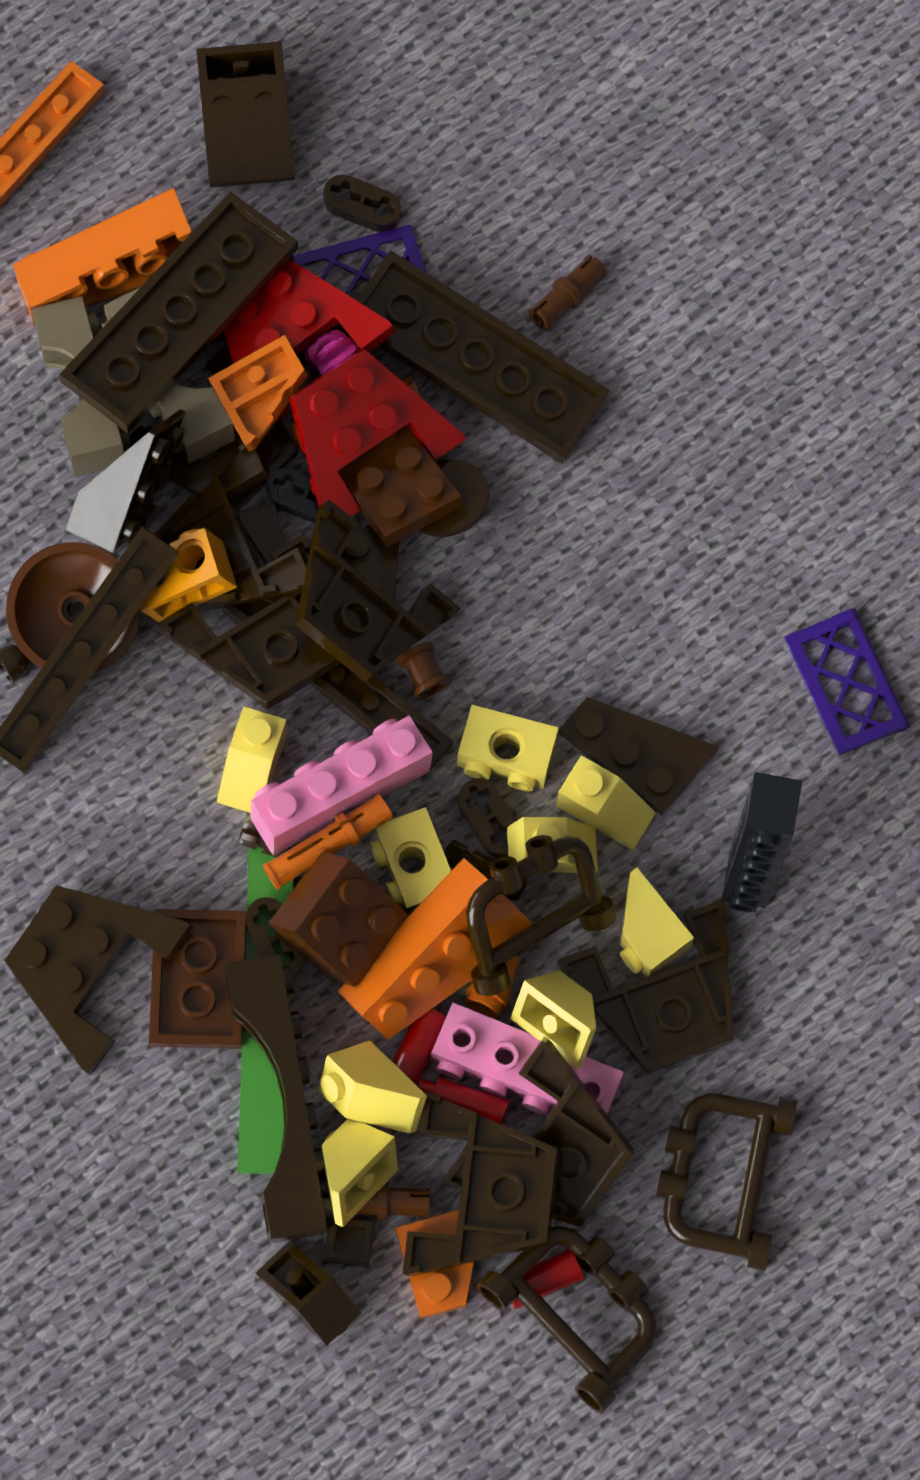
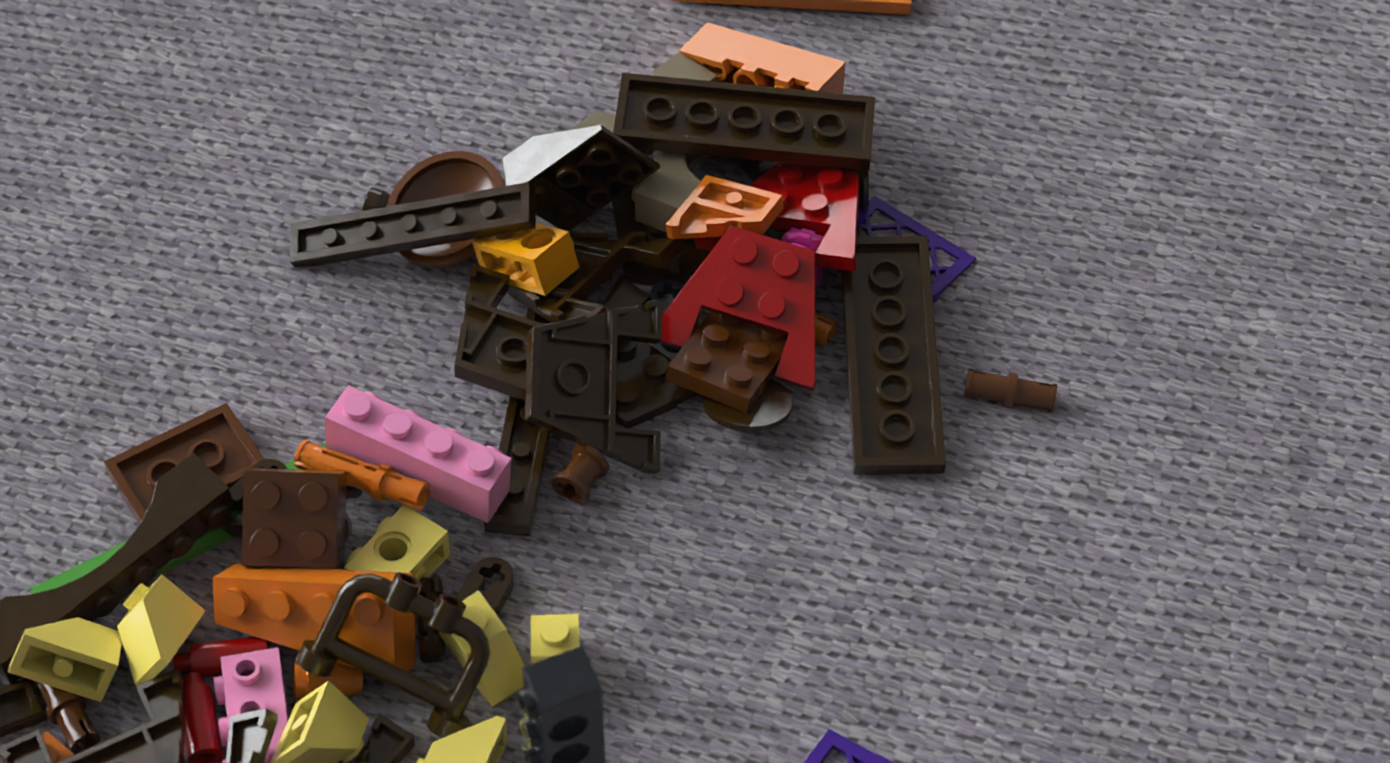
camera: 60 degrees right, 20 degrees down
(70, 952) = (147, 371): dark brown wing -> none
(245, 114) = (968, 95): dark brown slope -> none
(251, 757) = (419, 387): light yellow slope -> none
(366, 195) = (972, 213): dark brown beam -> none
(488, 730) = (552, 546): light yellow brick -> none
(644, 754) = (632, 673): dark brown wing -> none

